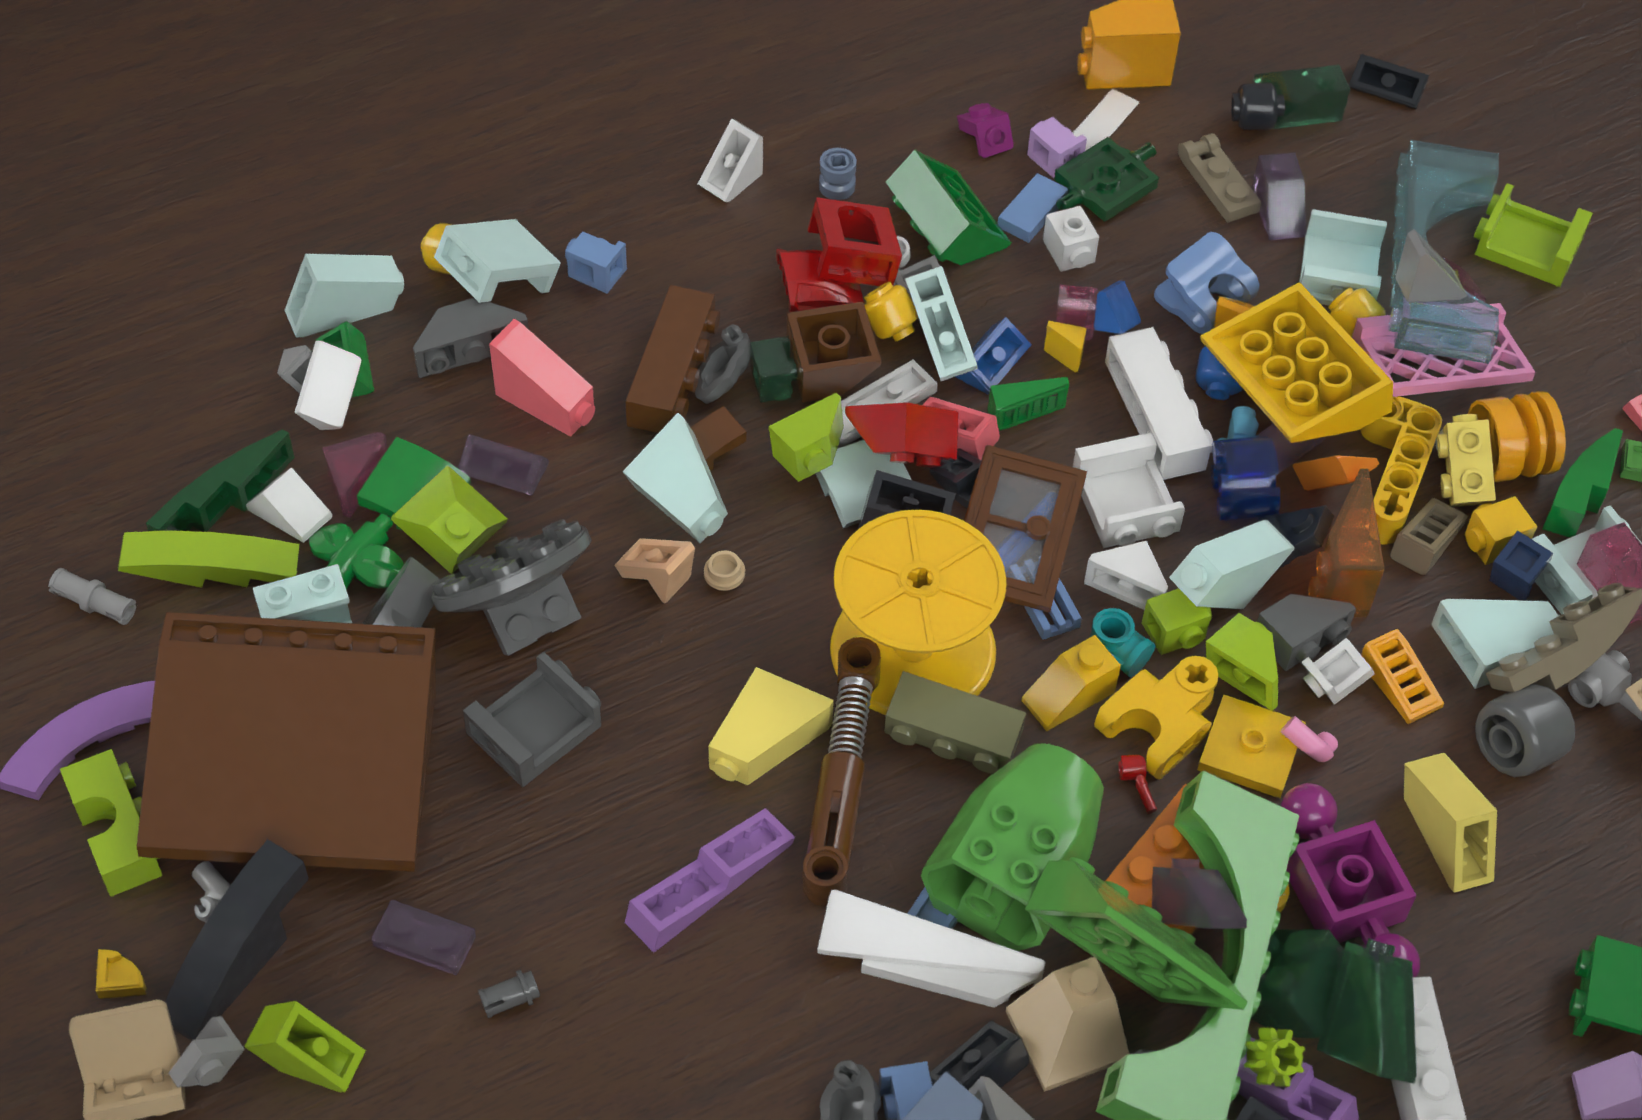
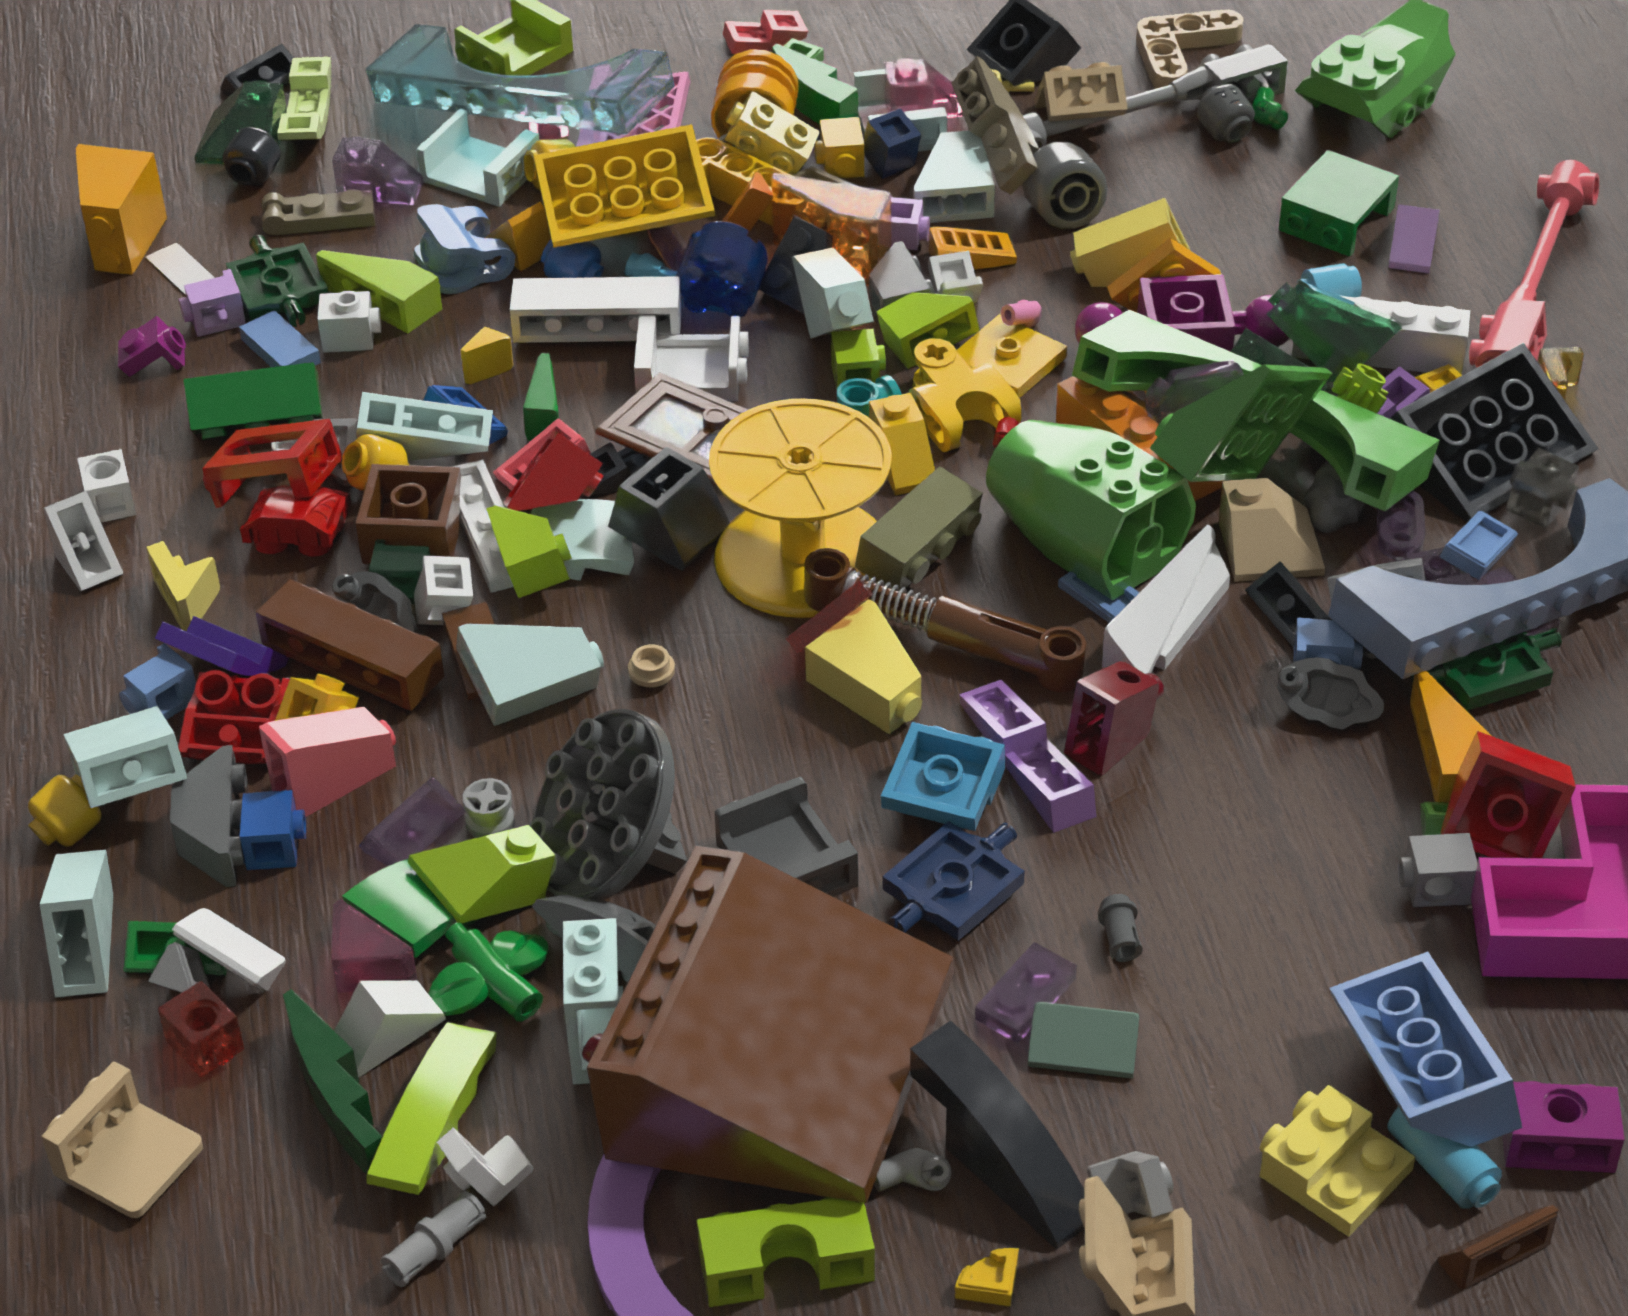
camera: 70 degrees left, 10 degrees down
(143, 386) = (117, 1145): none -> tan bracket
(150, 598) = (490, 1173): none -> white bracket
(257, 398) = (201, 1029): none -> clear red brick
(304, 1046) = (1138, 1106): lime slope -> none
(372, 992) = (1083, 1039): none -> sand green slope
(464, 374) = (271, 829): none -> blue brick
(530, 851) = (953, 880): none -> dark blue plate
(532, 499) = (488, 807): none -> light grey wheel
(577, 314) = (229, 713): none -> red slope
(592, 357) = (314, 697): none -> yellow brick
(637, 280) = (222, 648): none -> dark purple slope
(642, 814) = (944, 776): none -> dark azure plate
(661, 562) = (637, 688): light nougat slope -> none
(709, 238) = (185, 588): none -> light yellow slope
(747, 398) = (442, 587): none -> white brick
(758, 929) = (1111, 715): none -> dark red torso
(801, 154) = (107, 485): none -> white brick
(804, 677) = (830, 615): none -> clear red tile
(837, 173) = (146, 462): sand blue wheel -> none
(1077, 307) = (444, 333): clear pink slope -> none
(1115, 309) = (469, 303): blue slope -> none
(1126, 574) = (799, 372): white slope -> none
(1127, 250) = (397, 287): none -> lime slope
(1359, 126) = (308, 99): none -> yellowish green slope
(1401, 603) = (908, 222): none -> lavender brick
(1413, 852) = (1165, 261): none -> light orange plate
(1425, 274) = (579, 67): light grey slope -> none
(1486, 1014) = (1335, 279): none -> medium azure brick

